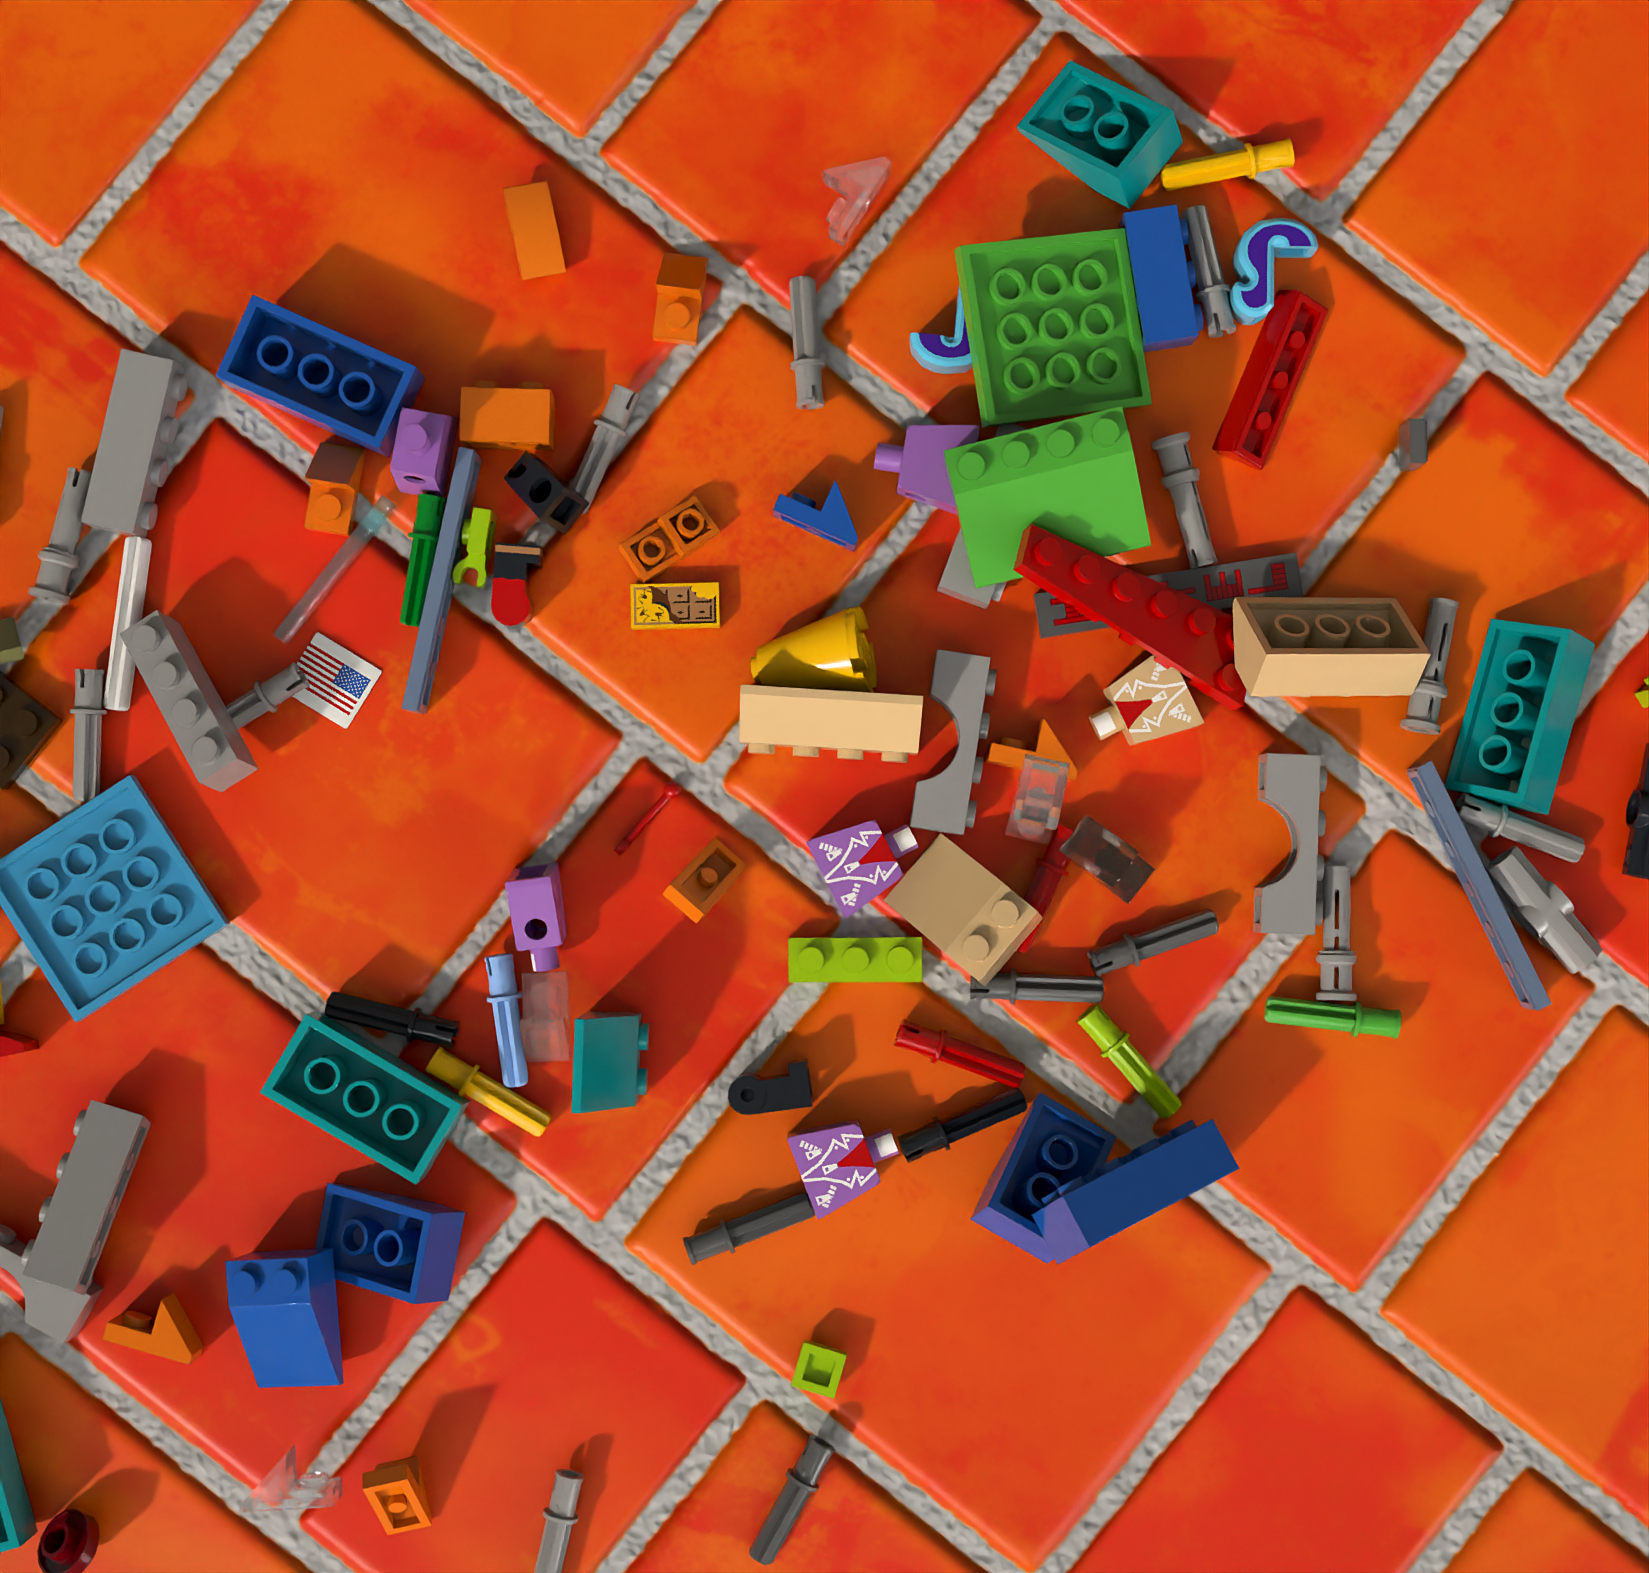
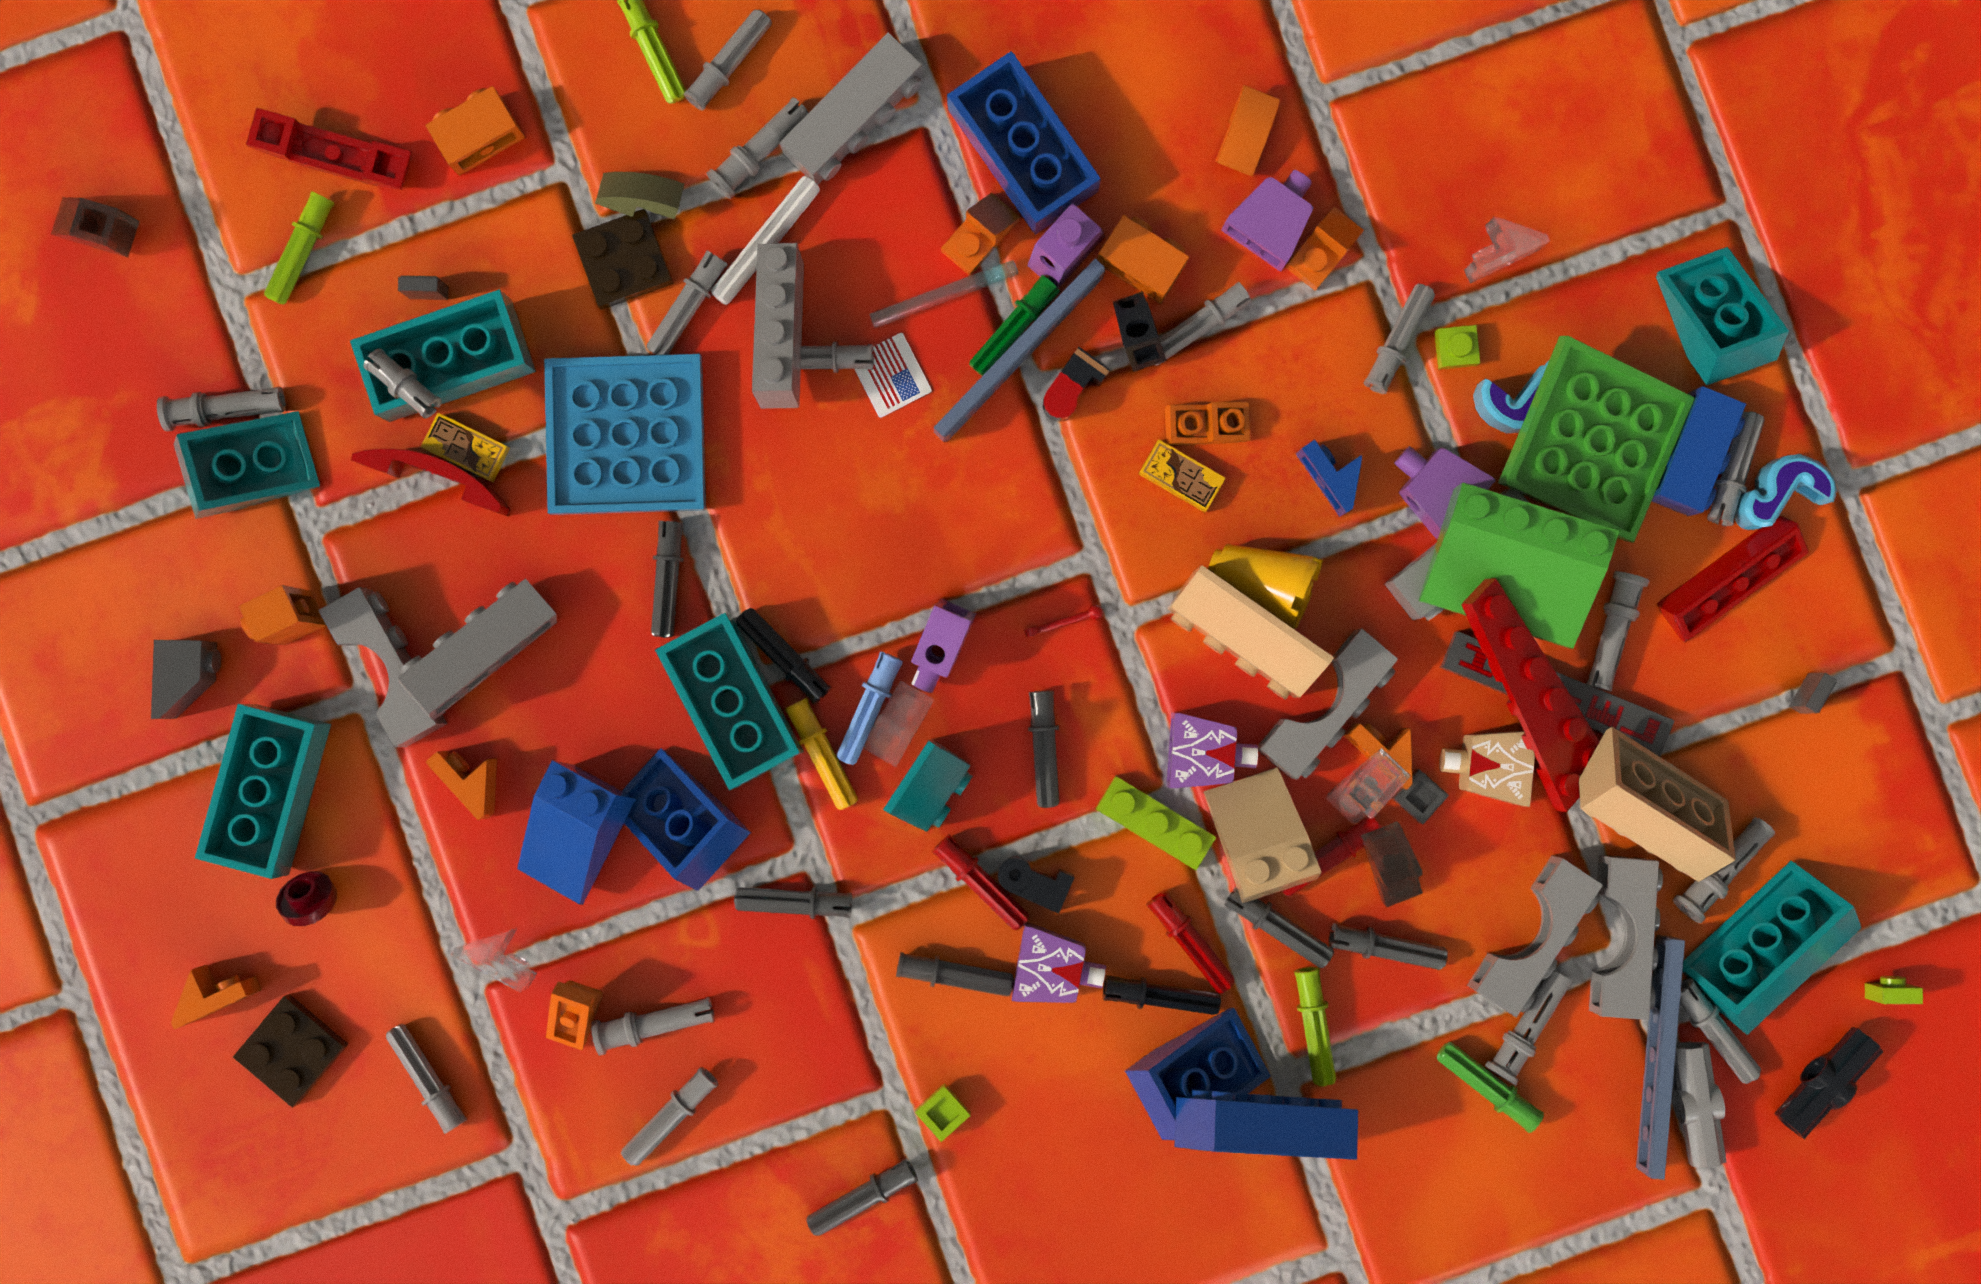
camera: 30 degrees right, 0 degrees up
(231, 1013) = (666, 578): none -> dark grey axle
(468, 1472) = (634, 1028): none -> light grey pin
(479, 537) = (1067, 334): lime plate -> none
(565, 1244) = (793, 902): none -> dark grey axle
(609, 302) = (1272, 219): none -> medium lavender torso
(703, 956) = (1044, 747): none -> dark grey axle
(705, 880) = (1081, 694): orange slope -> none
(720, 1122) = (967, 869): none -> red axle
(867, 317) = (1457, 347): none -> lime plate
(1096, 776) = (1421, 797): none -> dark grey tile
(1228, 165) = (1804, 399): yellow axle -> none
(1402, 839) = (1624, 984): none -> light grey arch

